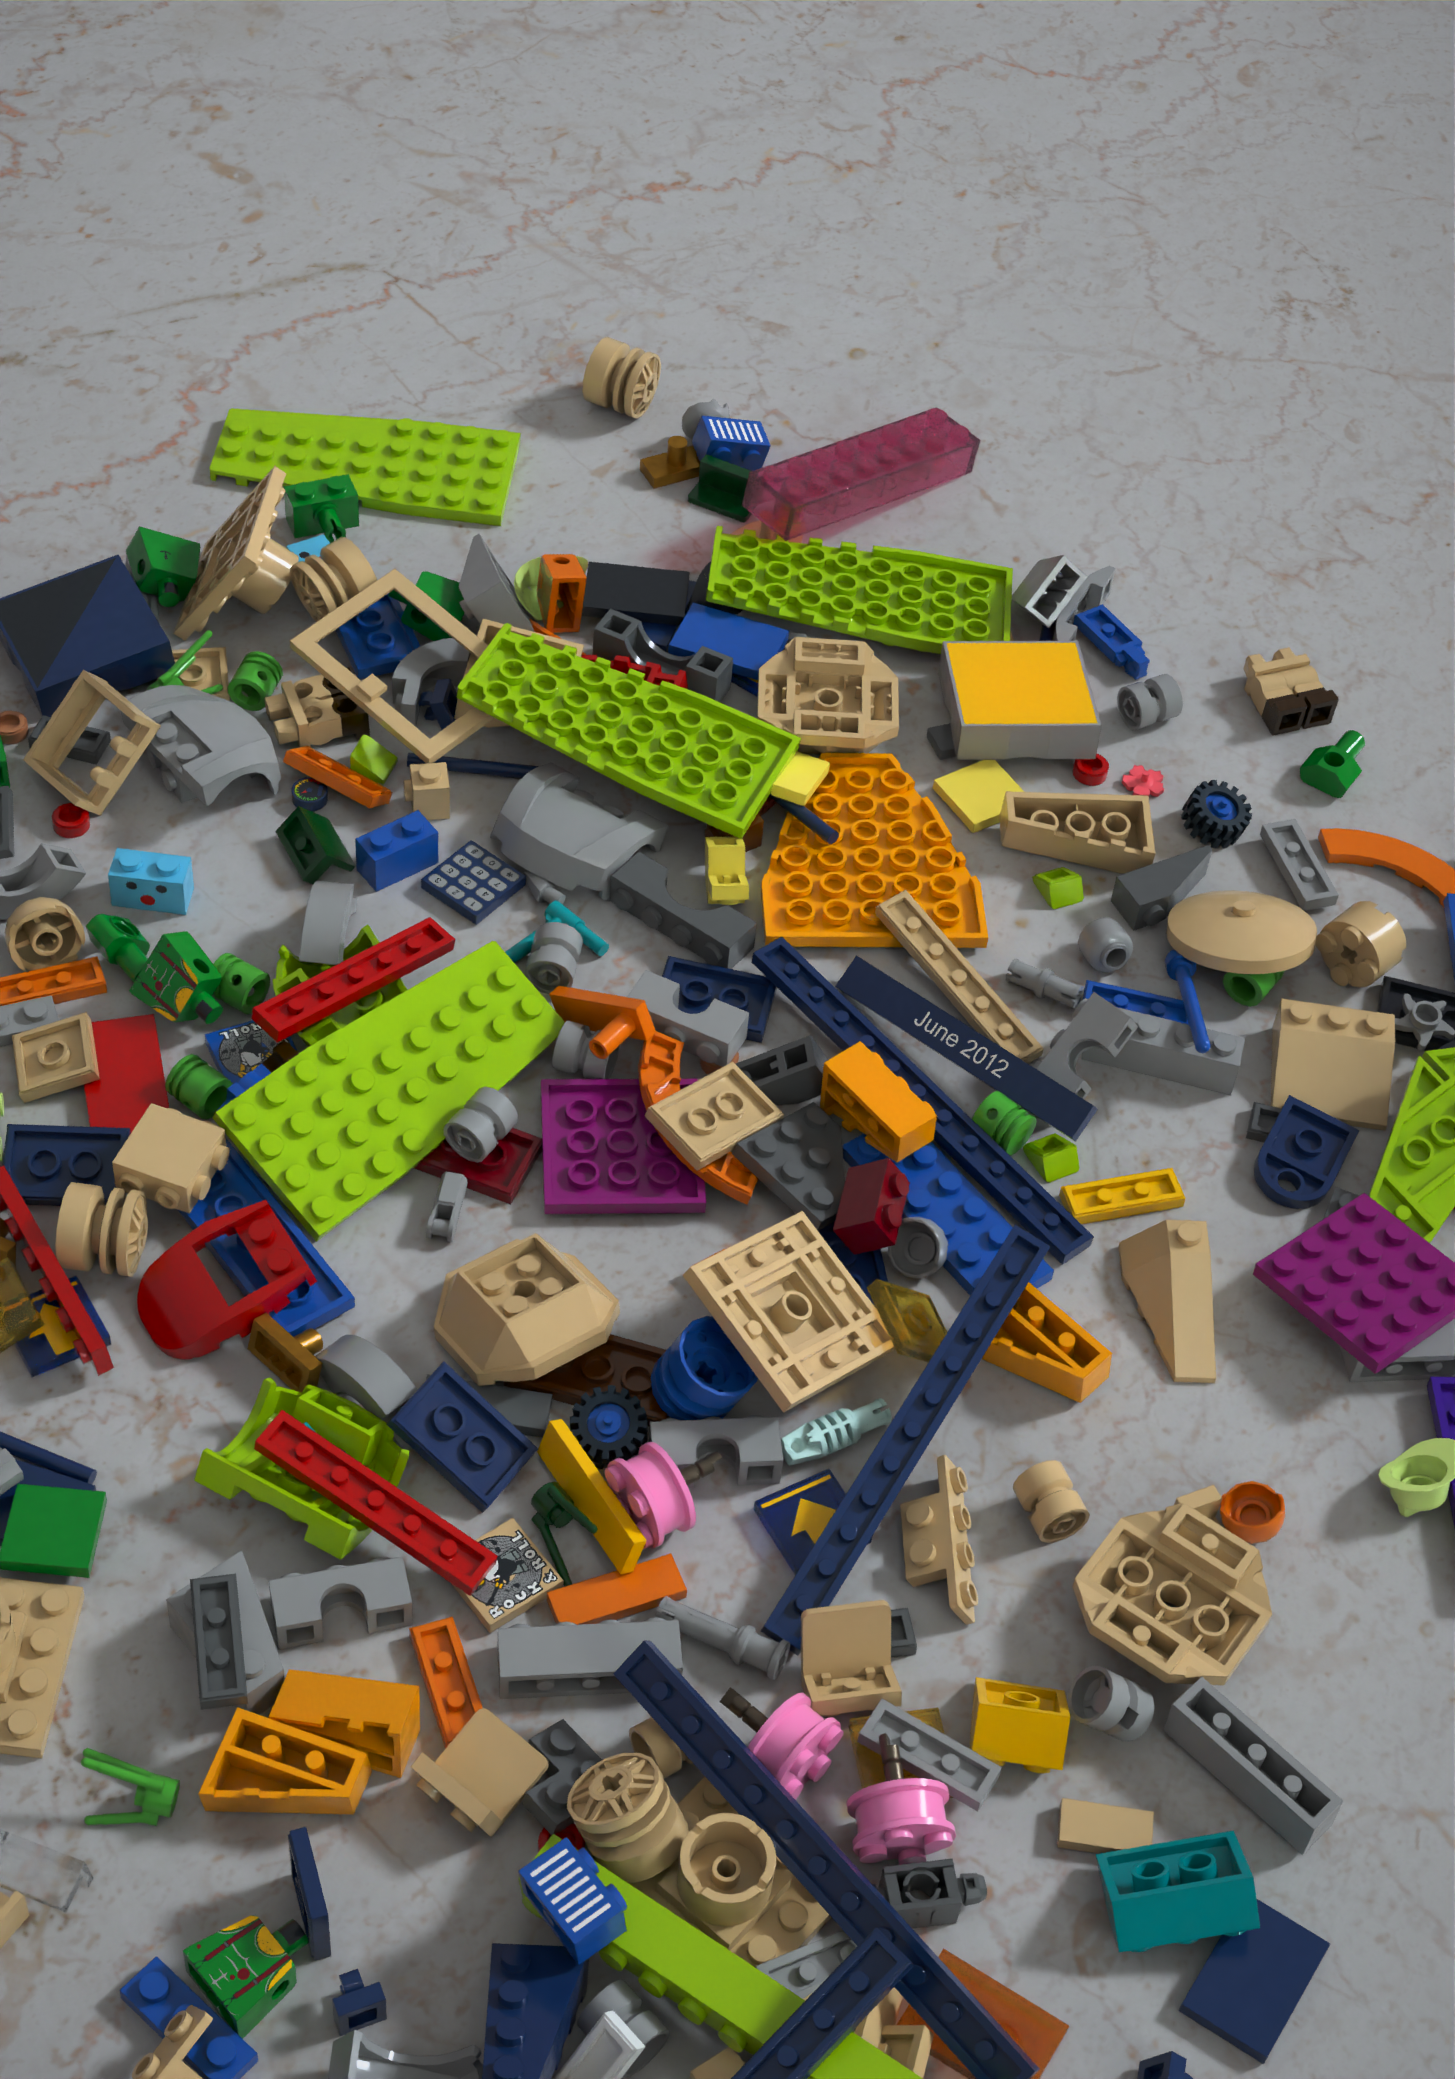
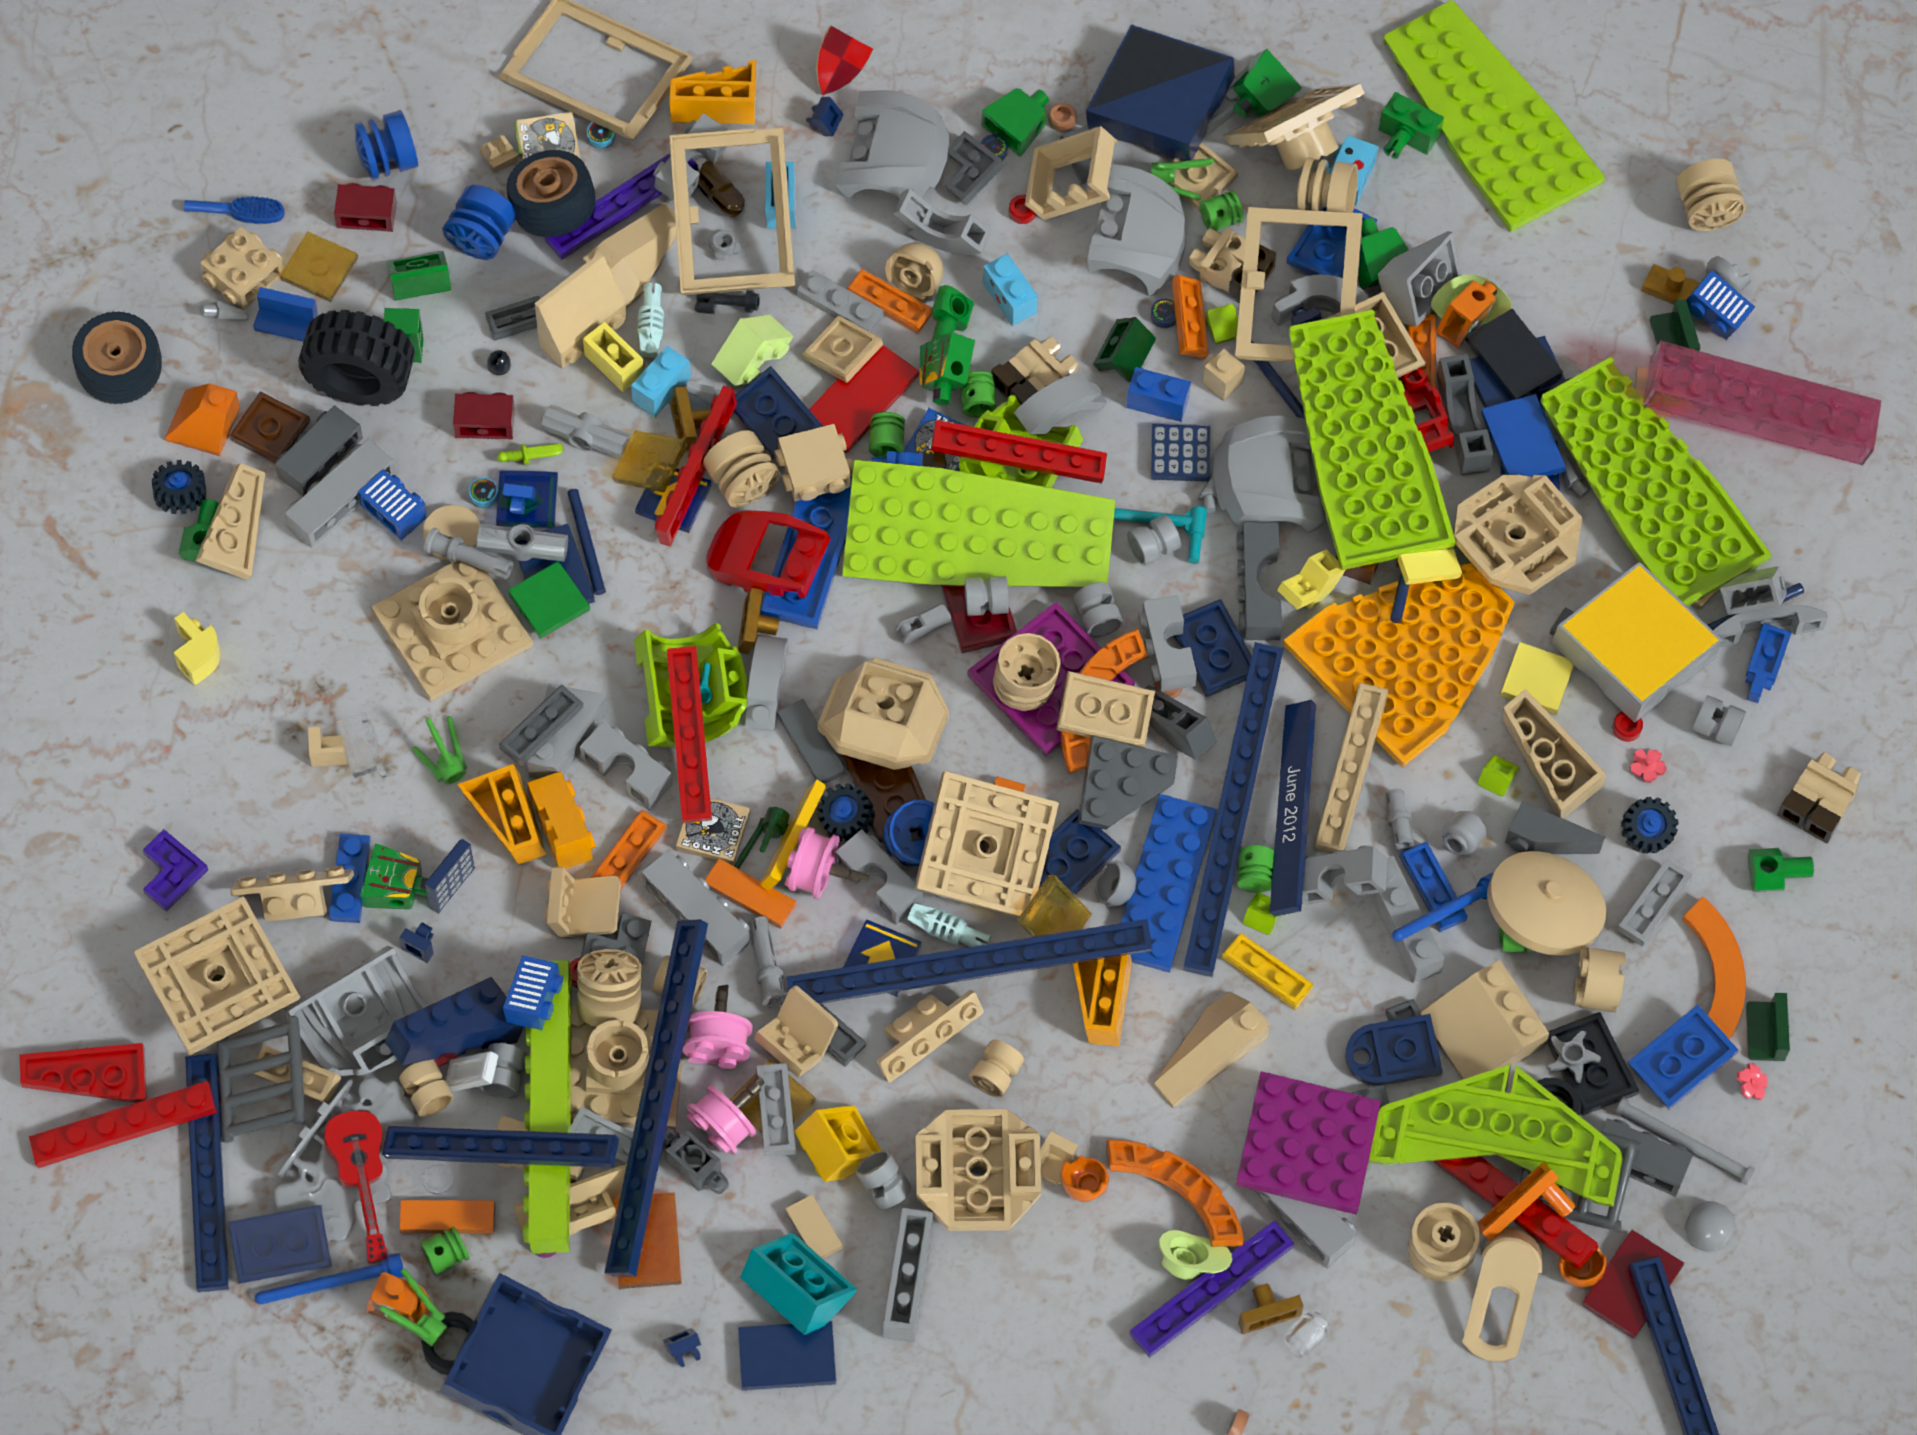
camera: 55 degrees right, 15 degrees up
(263, 917) = (1032, 369): none -> tan hips
(462, 1436) = (773, 745): dark blue tile -> none
(612, 1014) = (1127, 610): orange piece -> none
(612, 1143) = (1023, 659): none -> tan wheel
(871, 1206) = (1113, 838): dark red brick -> none
(876, 1102) = (1192, 788): light orange wedge -> none
(1322, 1423) = (1184, 1179): none -> orange tile

